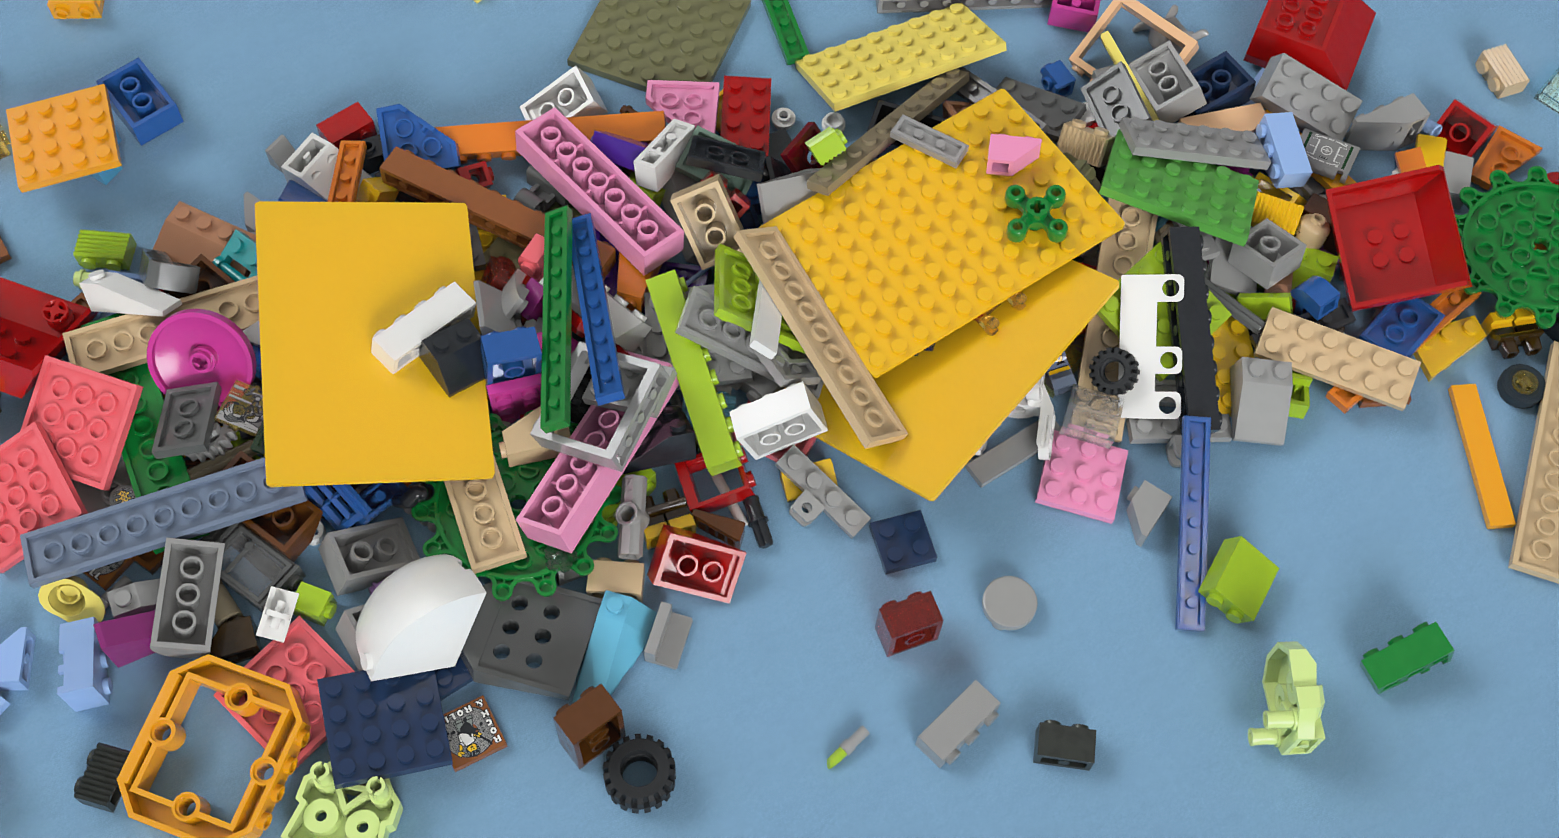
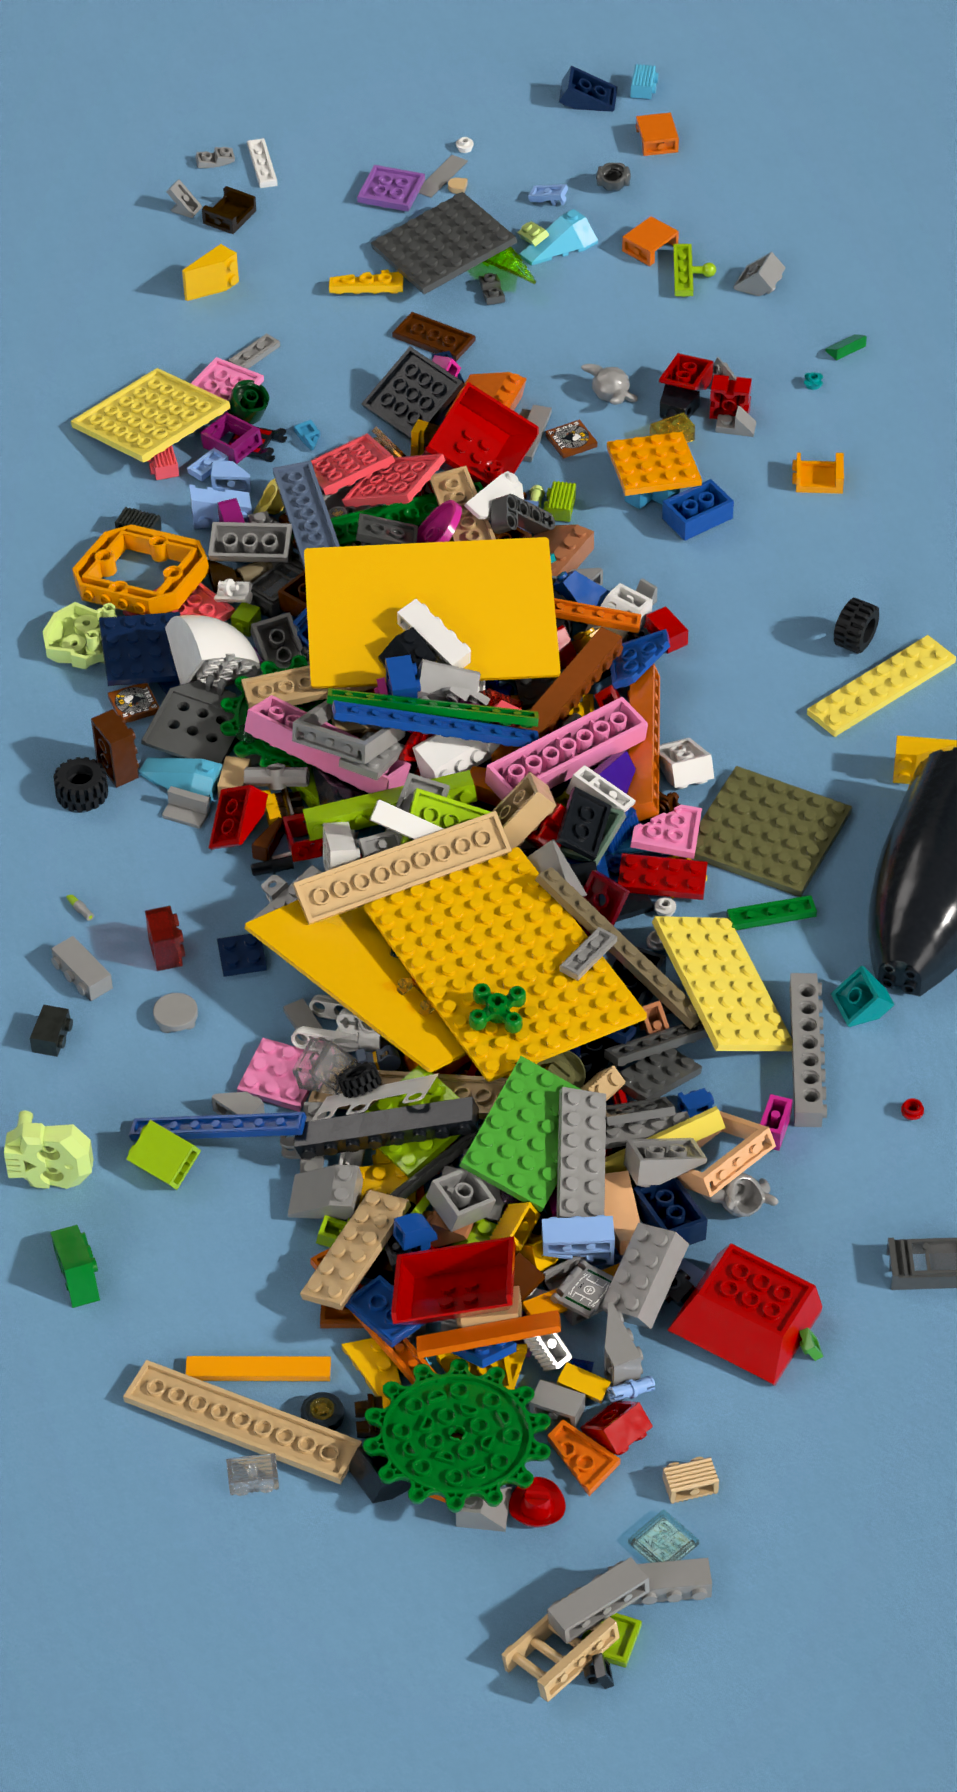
camera: 100 degrees right, 15 degrees down
(827, 145) = (591, 888): lime brick -> none
(1011, 153) = (561, 997): bright pink slope -> none

